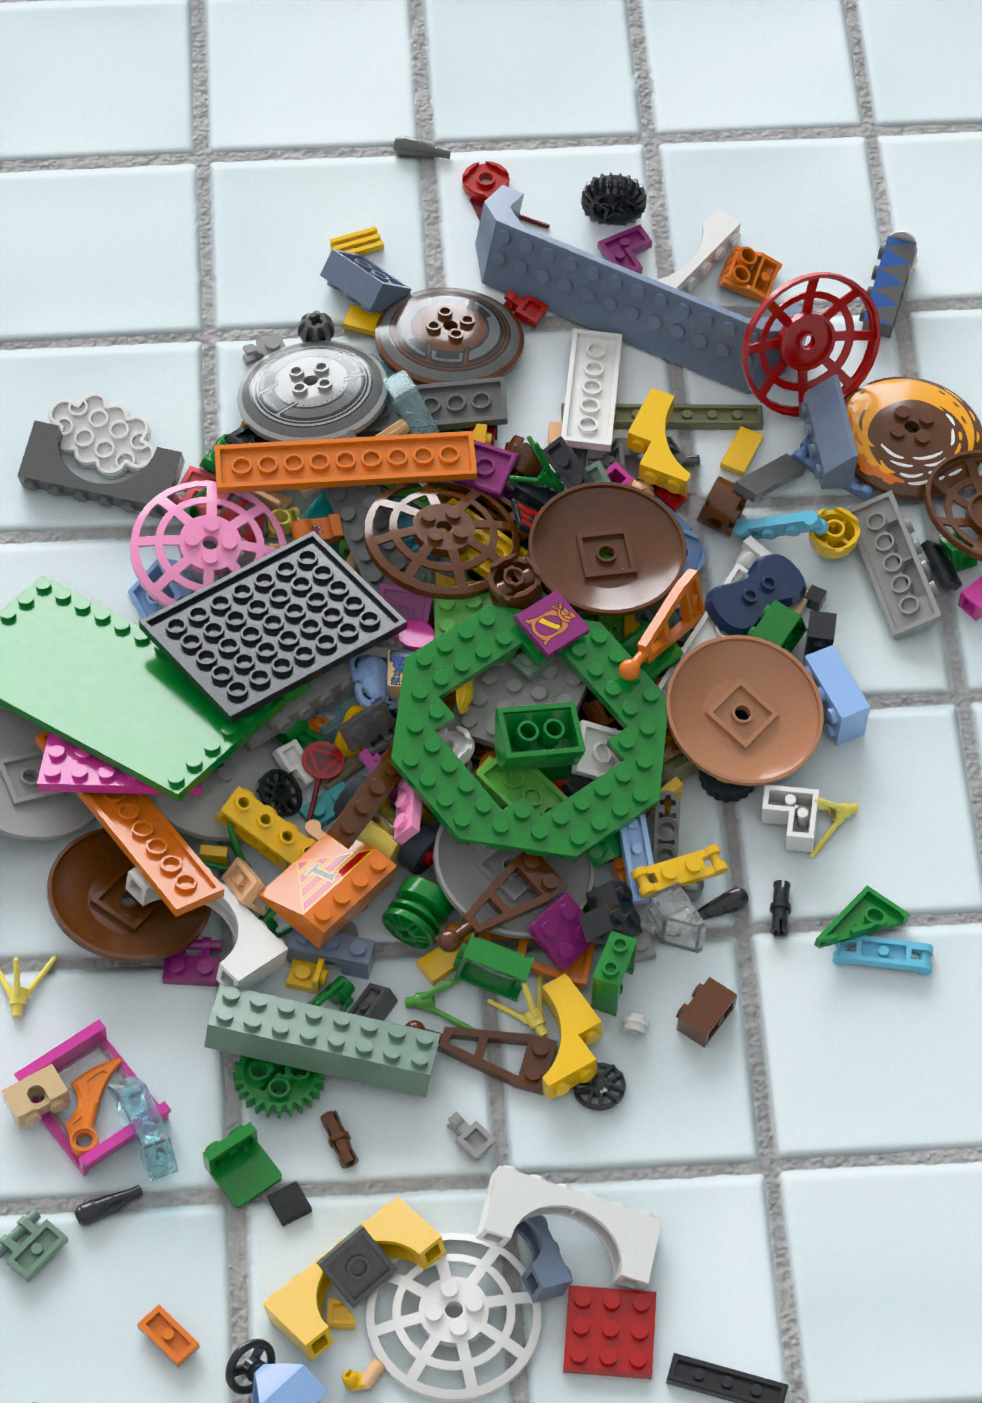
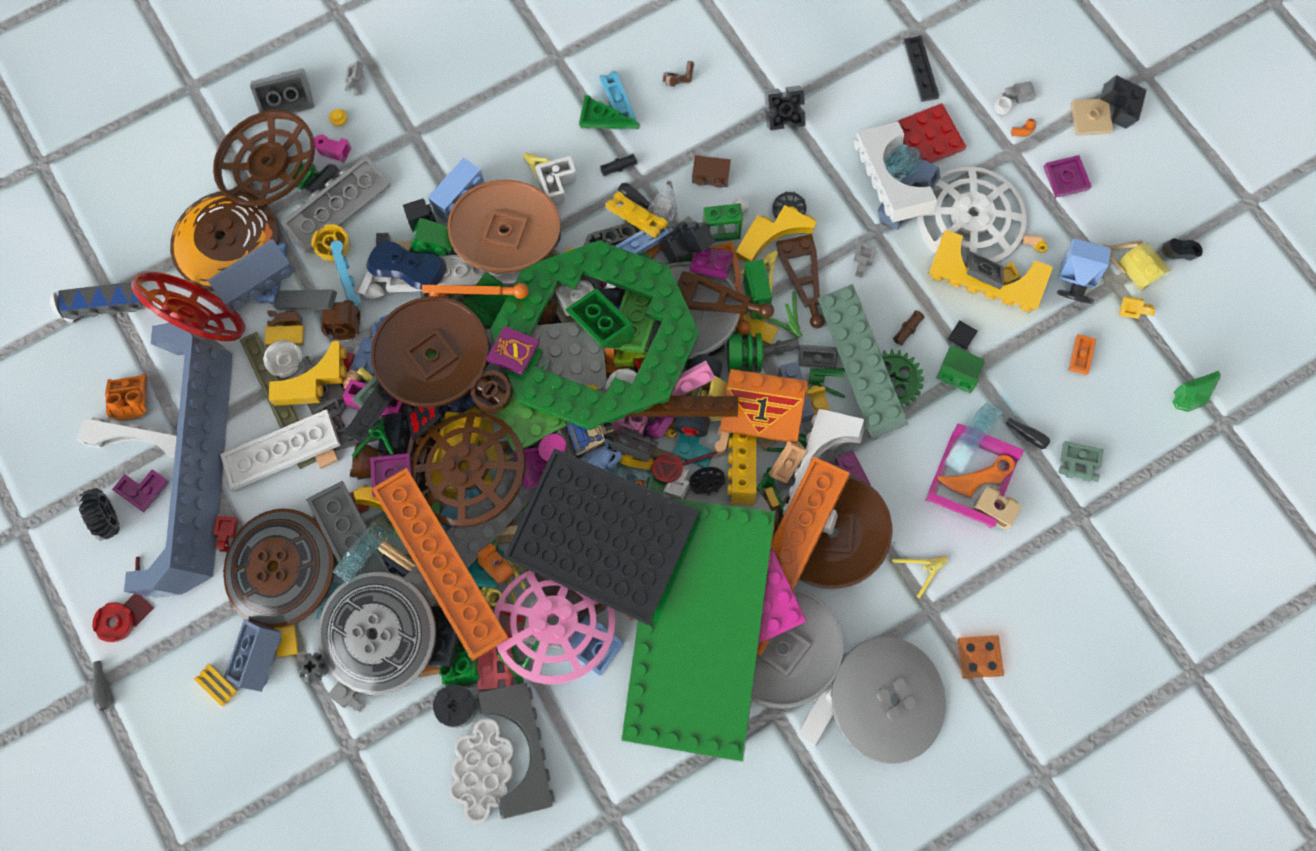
camera: 115 degrees left, 15 degrees up
(188, 433) = (445, 699): none -> black brick
(405, 969) = (792, 344): none -> dark grey pin
(582, 1259) = (895, 163): none -> clear light blue plate
(707, 430) = (282, 358): none -> white tile
(748, 1142) = (785, 107): none -> black brick
(761, 454) = (289, 318): none -> reddish brown plate
(880, 1035) = (672, 79): none -> reddish brown plate

